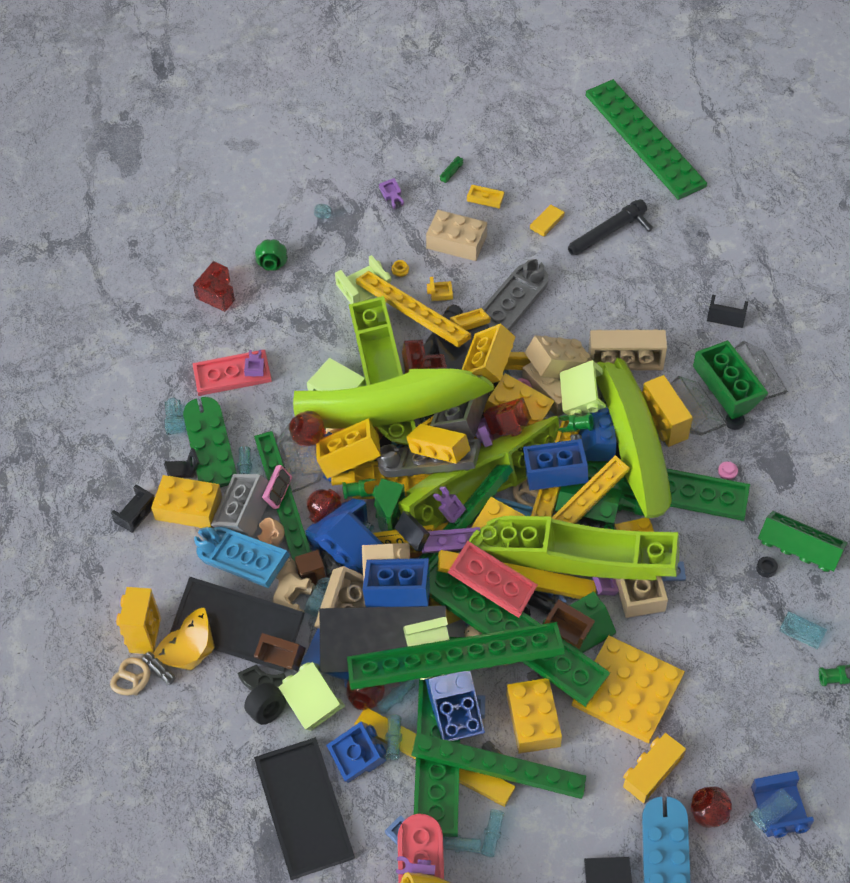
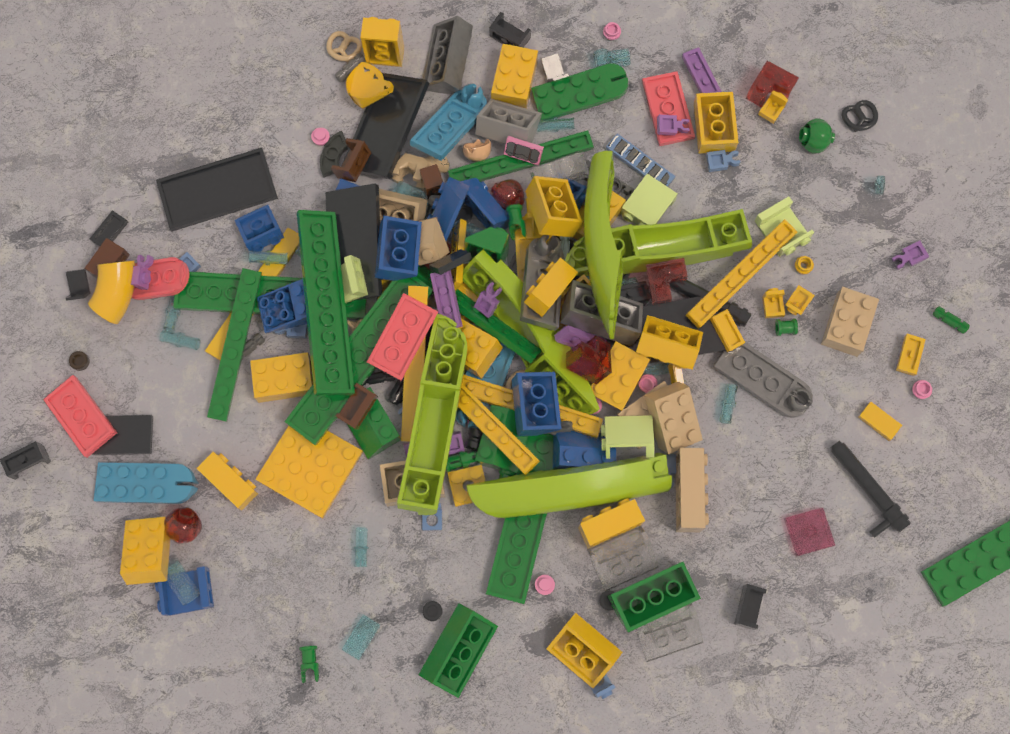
camera: 90 degrees right, 20 degrees up
(141, 418) = (612, 31): none -> bright pink plate
(154, 567) = (447, 55): none -> flat silver slope
(198, 343) = (700, 71): none -> medium lavender plate
(241, 287) = (773, 106): none -> yellow bracket
(241, 693) = (320, 136): none -> bright pink plate
(253, 329) = (715, 122): none -> yellow brick
(254, 223) = (860, 115): none -> black piece
(265, 703) = (306, 151): black tyre -> none
(284, 399) = (638, 160): none -> tile
(292, 328) = (719, 160): none -> medium blue plate
(309, 427) = (574, 168): clear red plant -> none
(310, 696) = (306, 184): yellowish green panel -> none
(436, 270) = (799, 300): none -> yellow bracket
(462, 284) = (786, 327): none -> green bush
(516, 190) = (922, 389): none -> bright pink plate
(538, 326) = (728, 403): none -> clear light blue pin
(577, 423) = (588, 429): green piece -> none
(652, 271) = (809, 532): none -> clear pink plate
(712, 632) = (361, 547): none -> clear light blue axle
(745, 841) = (145, 551): none -> yellow brick
(786, 435) = (584, 650): none -> yellow slope
(819, 421) = (605, 689): none -> medium blue bracket

